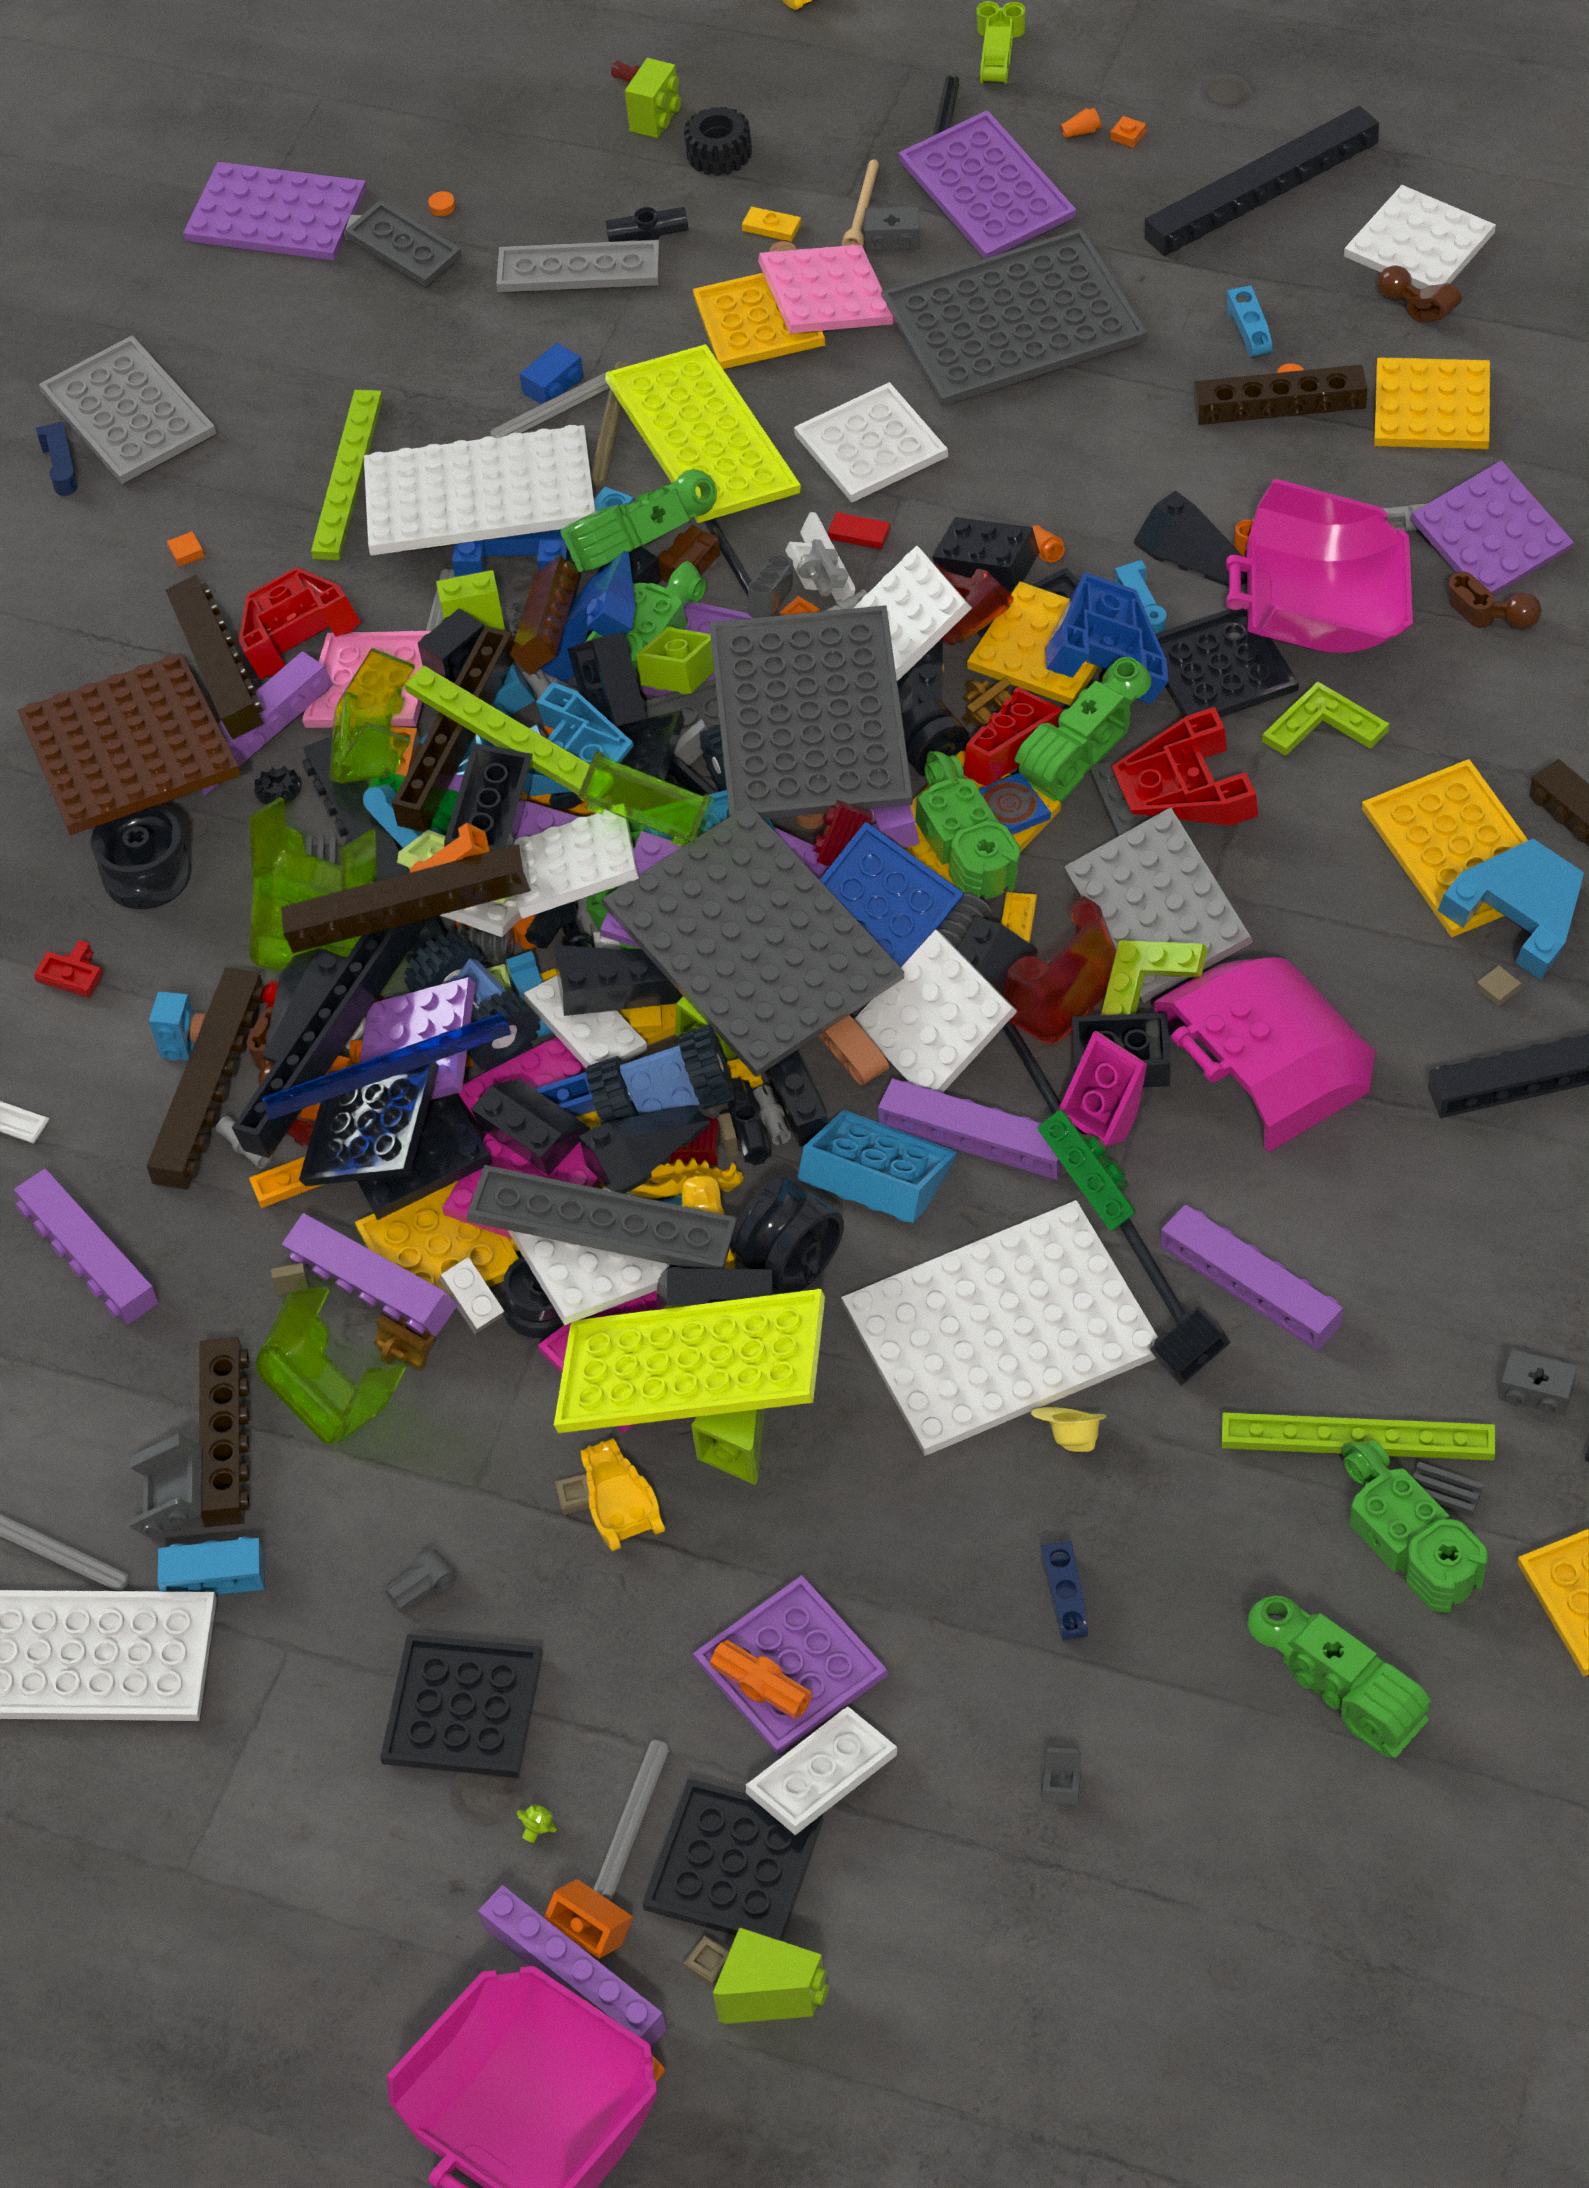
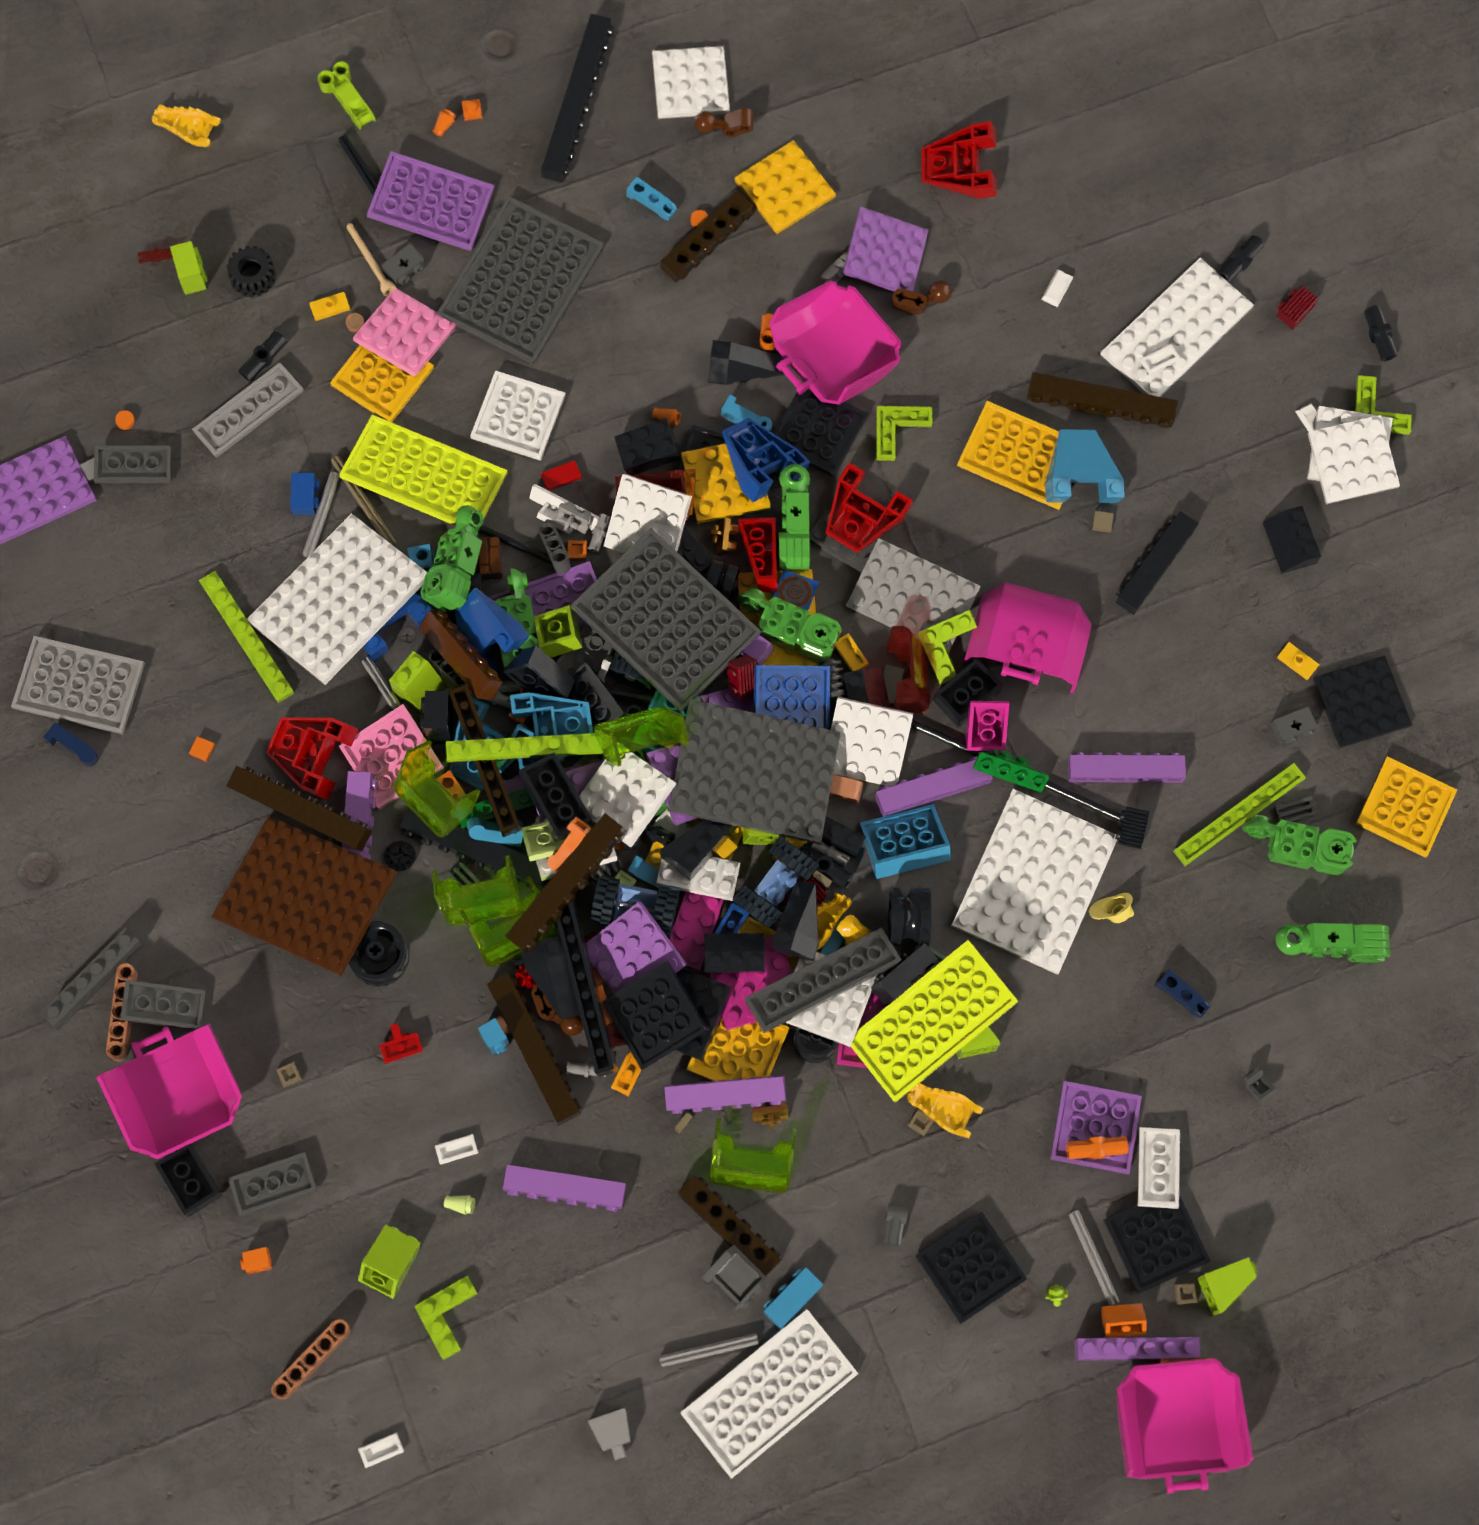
camera: 50 degrees left, 20 degrees up
(385, 1066) = (647, 984): clear blue tile -> none
(472, 1295) = (785, 1064): white brick -> none

